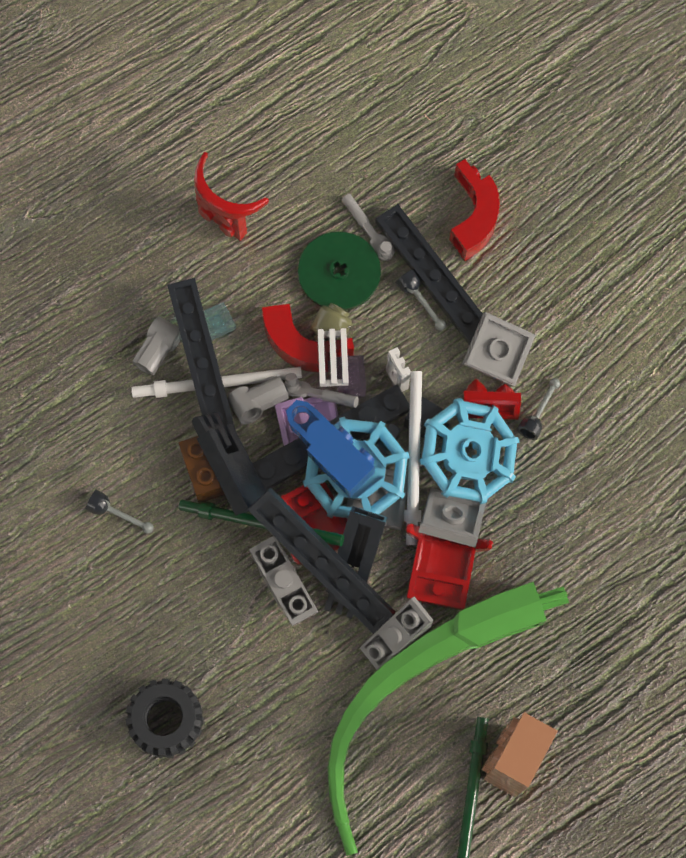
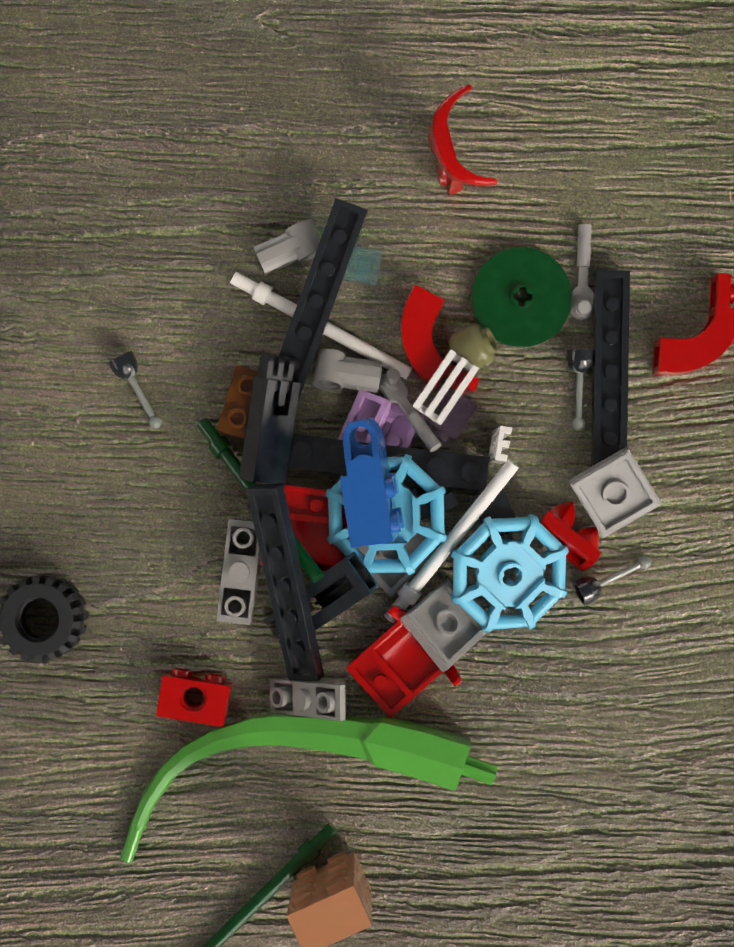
camera: 35 degrees right, 15 degrees up
(305, 711) = (175, 704): none -> red brick

